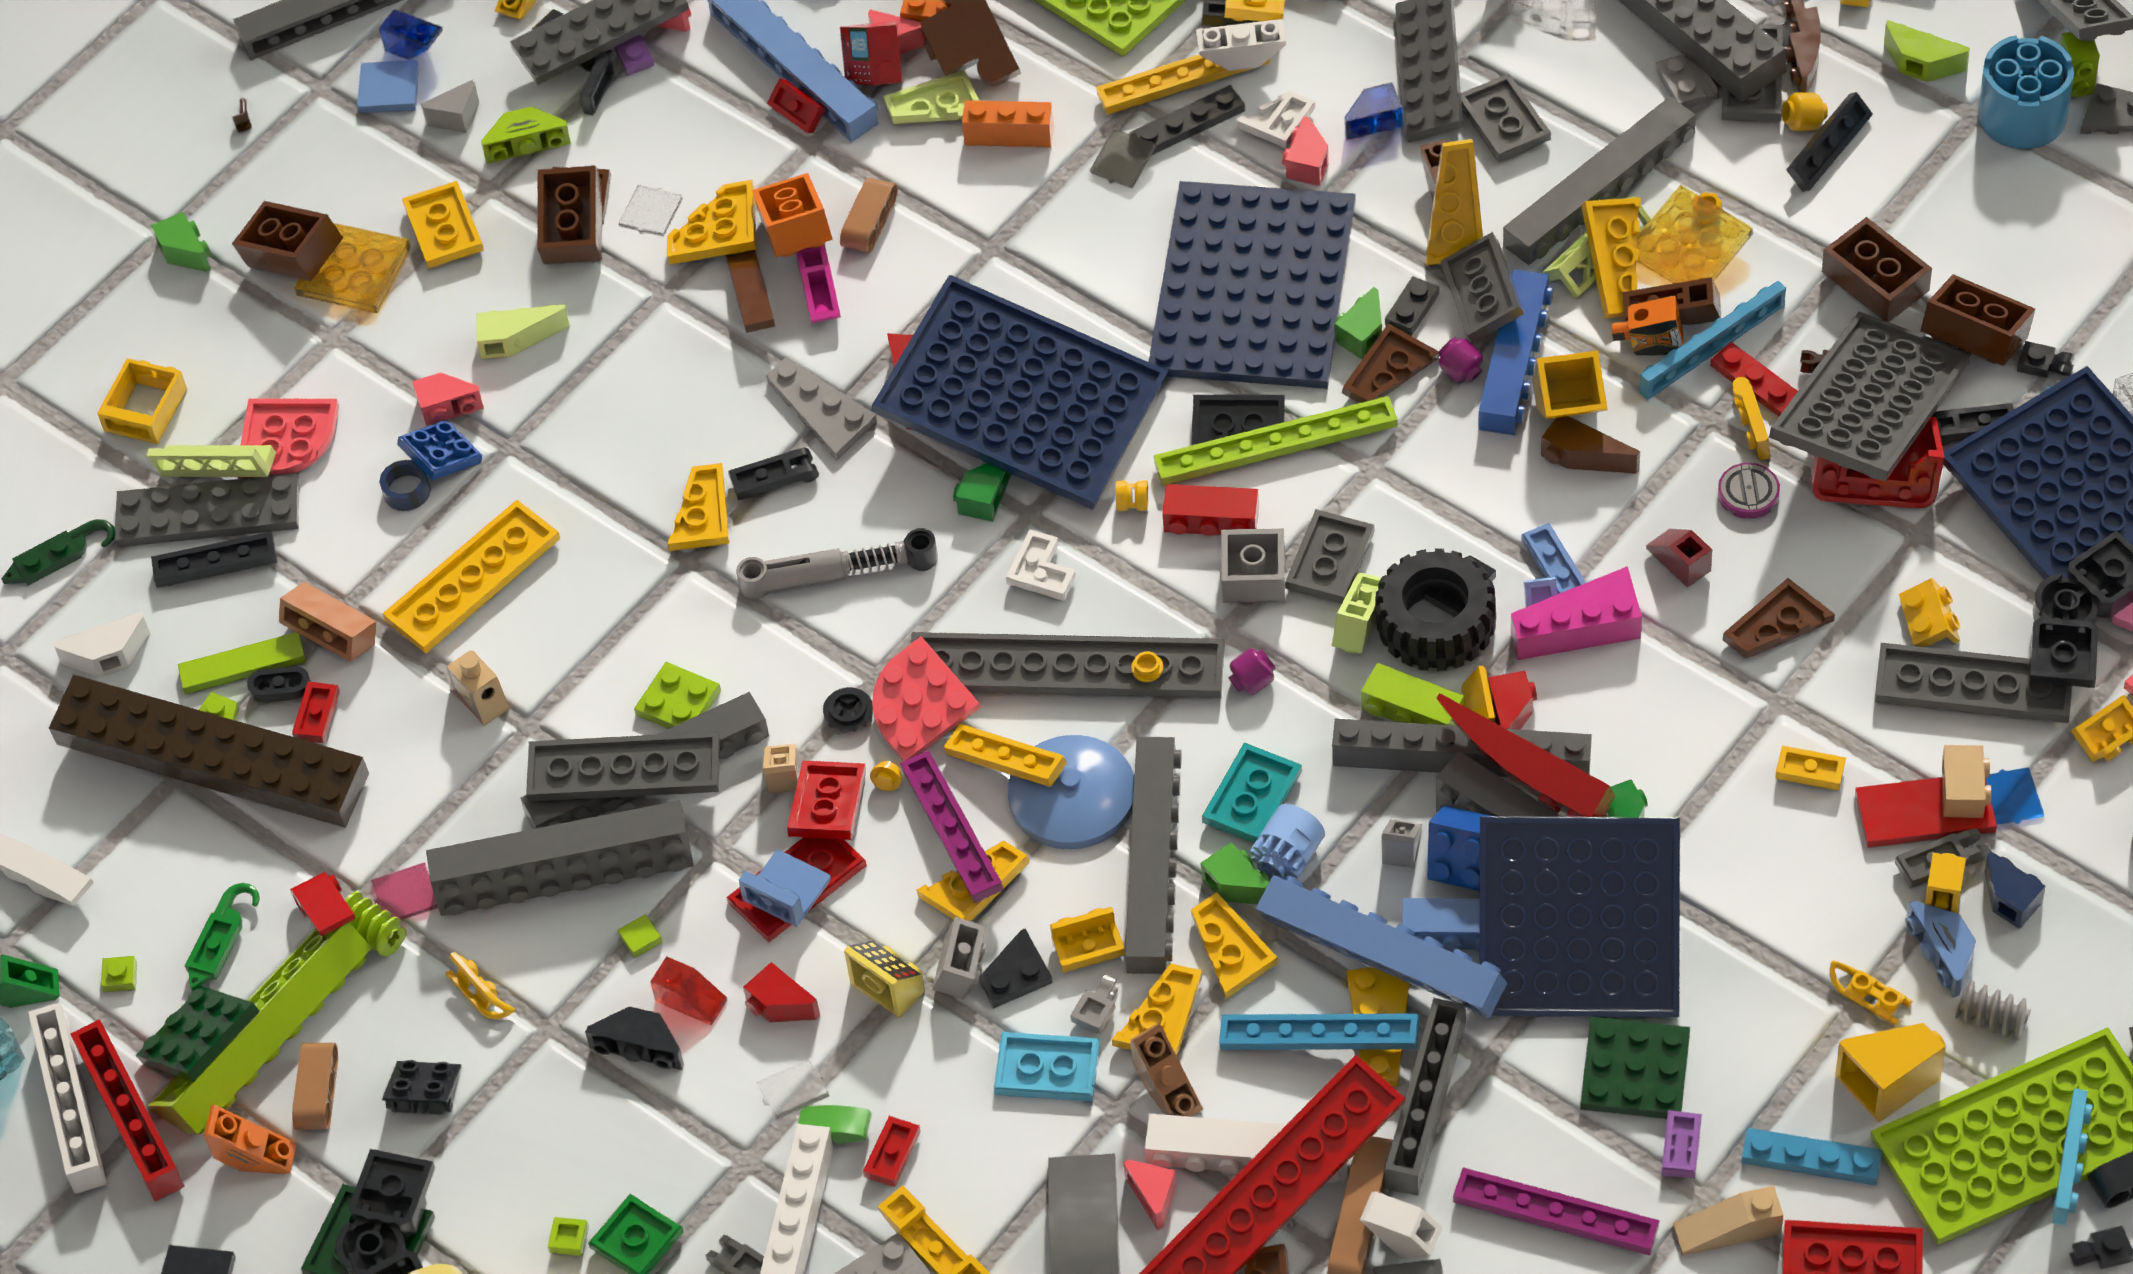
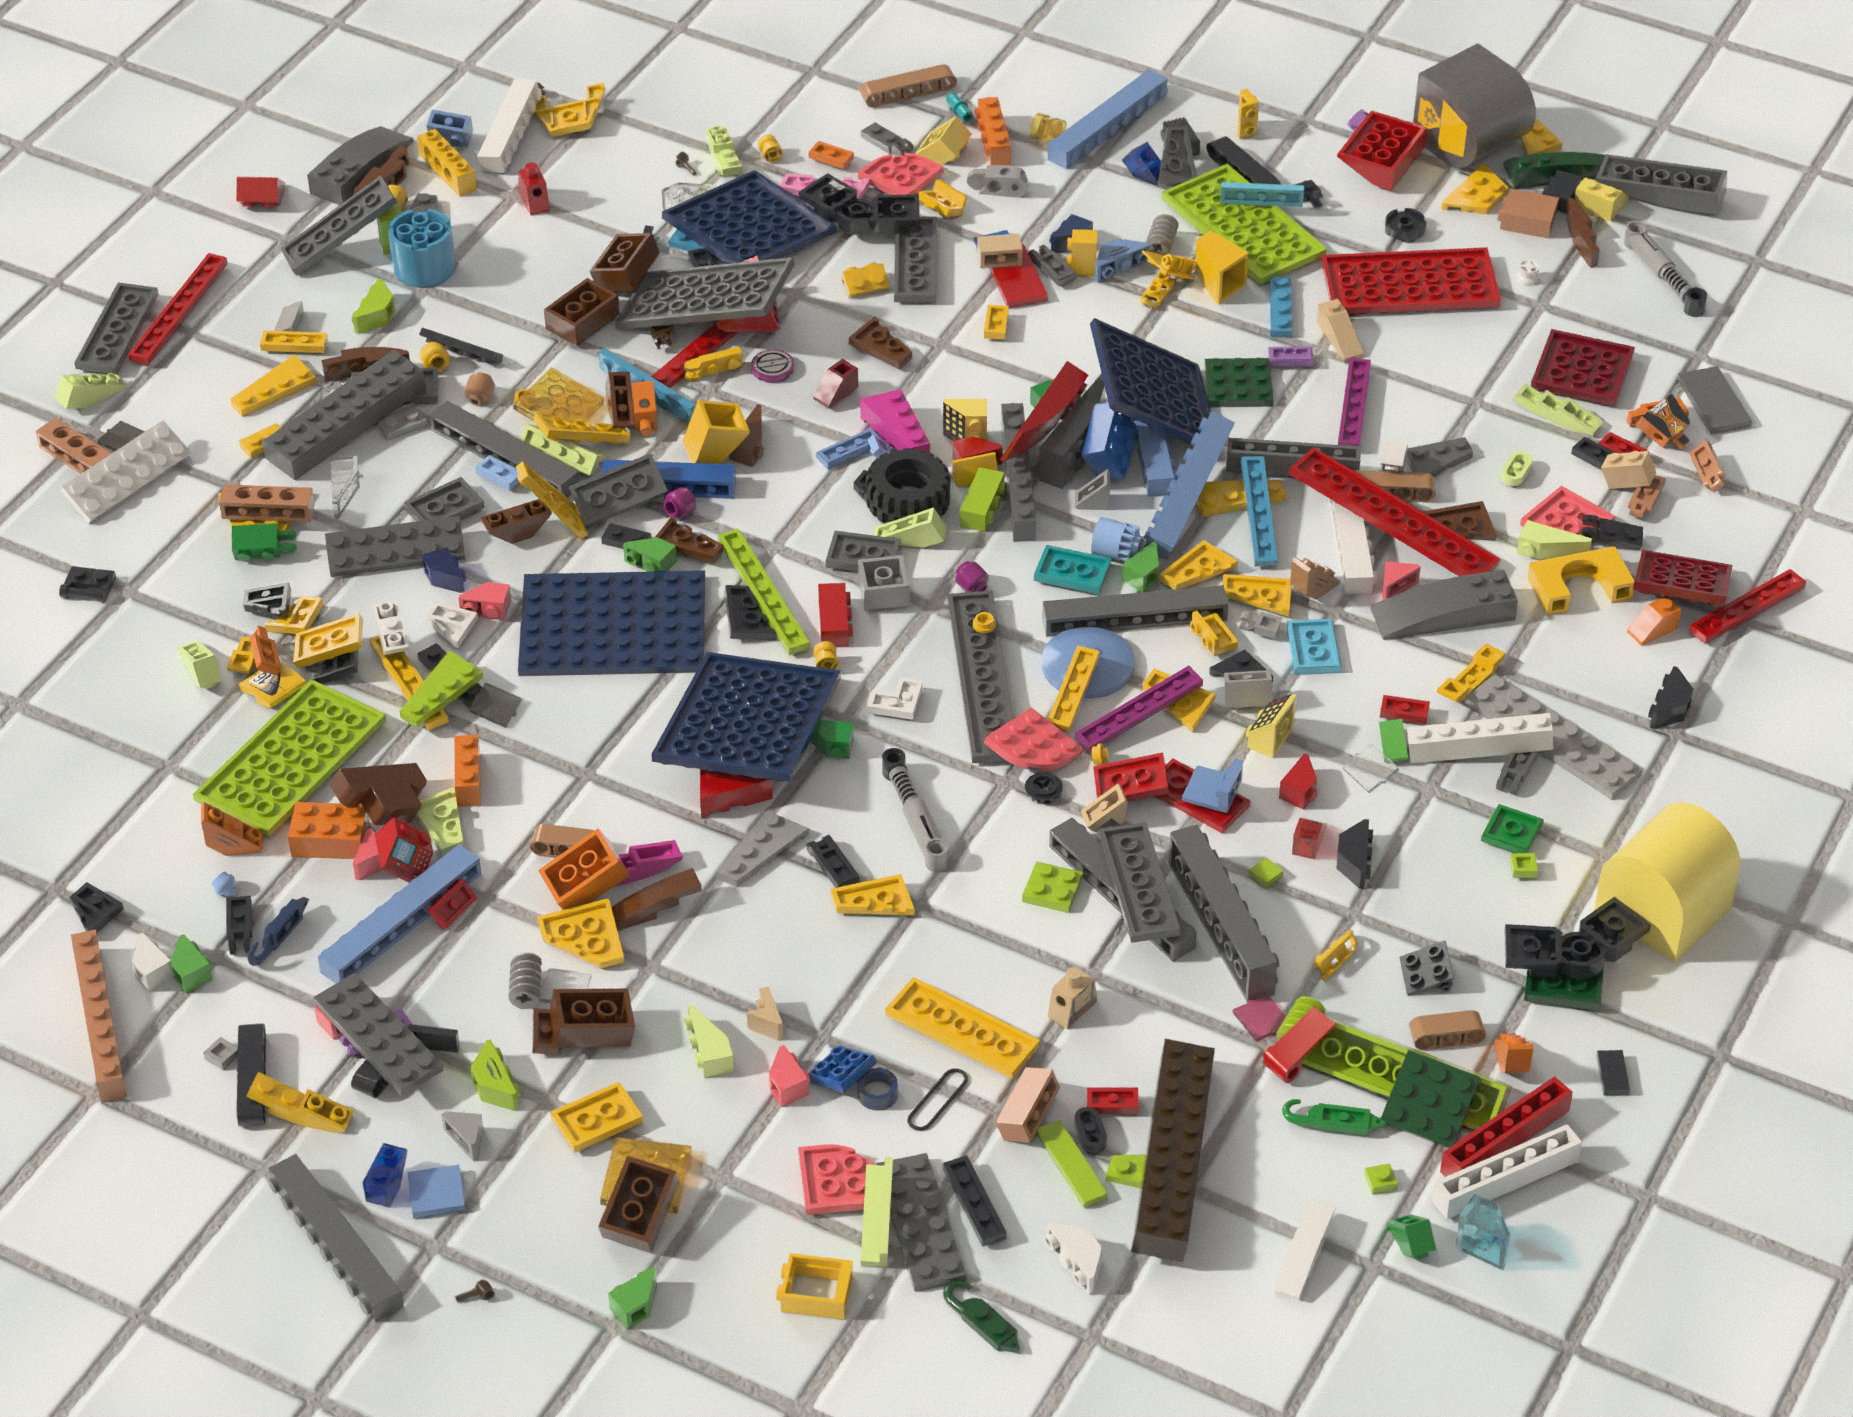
camera: 105 degrees left, 10 degrees down
(374, 557) = (946, 1103): none -> black piece
(536, 390) = (766, 1016): none -> tan slope
(657, 166) = (525, 980): none -> light grey piece
(1149, 99) = (441, 687): none -> lime wing
(1555, 172) = (498, 472): none -> light blue plate
(1559, 693) = (964, 418): none -> light yellow slope
(1731, 157) = (479, 388): none -> medium nougat head
(1917, 1000) = (1172, 265): none -> yellow hinge

